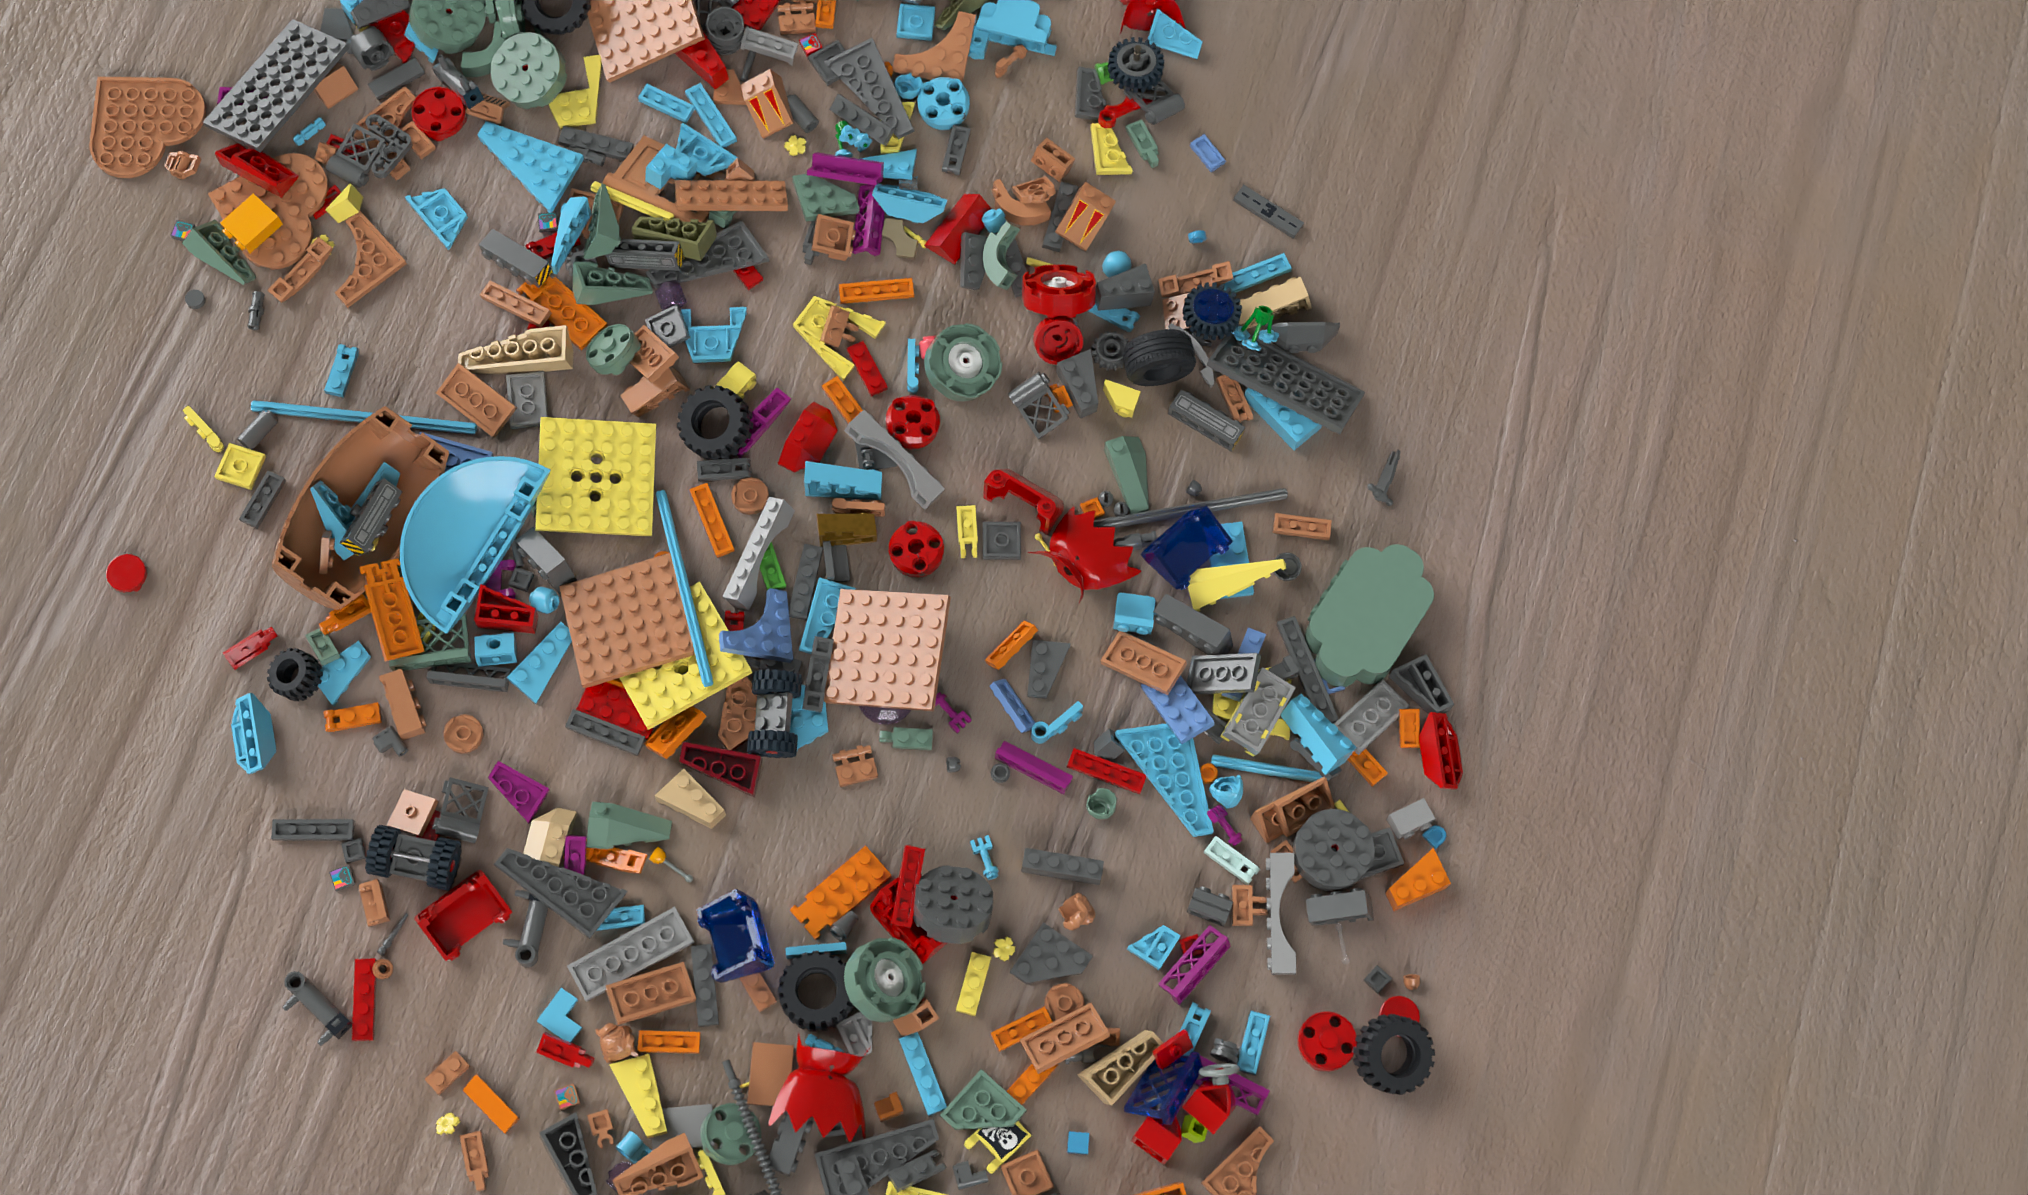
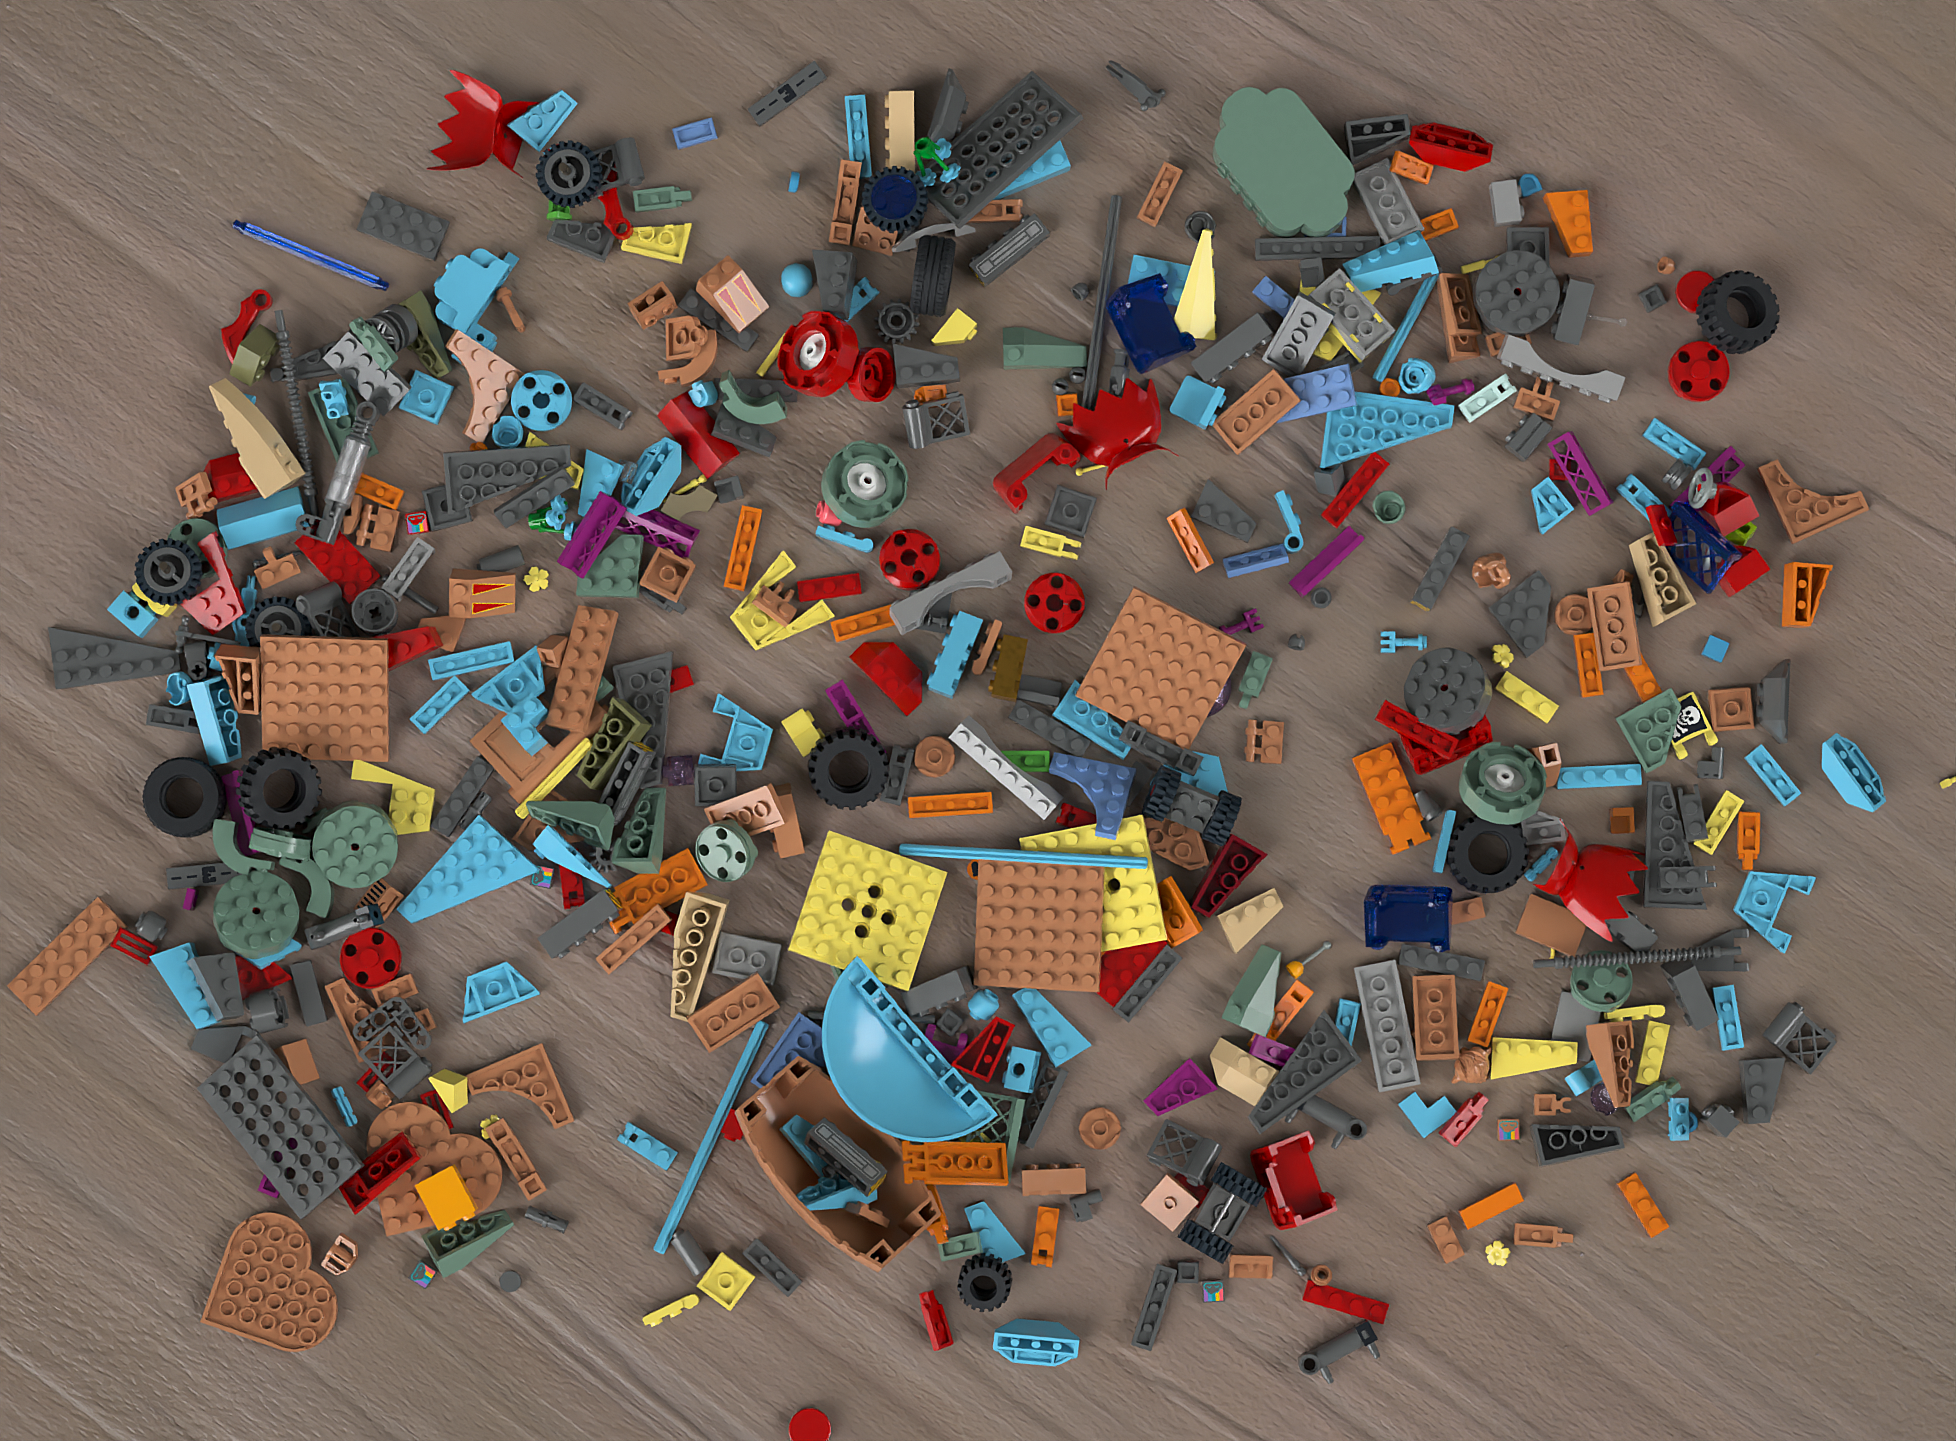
camera: 65 degrees left, 15 degrees up
(922, 266) = (729, 489): none -> dark grey panel

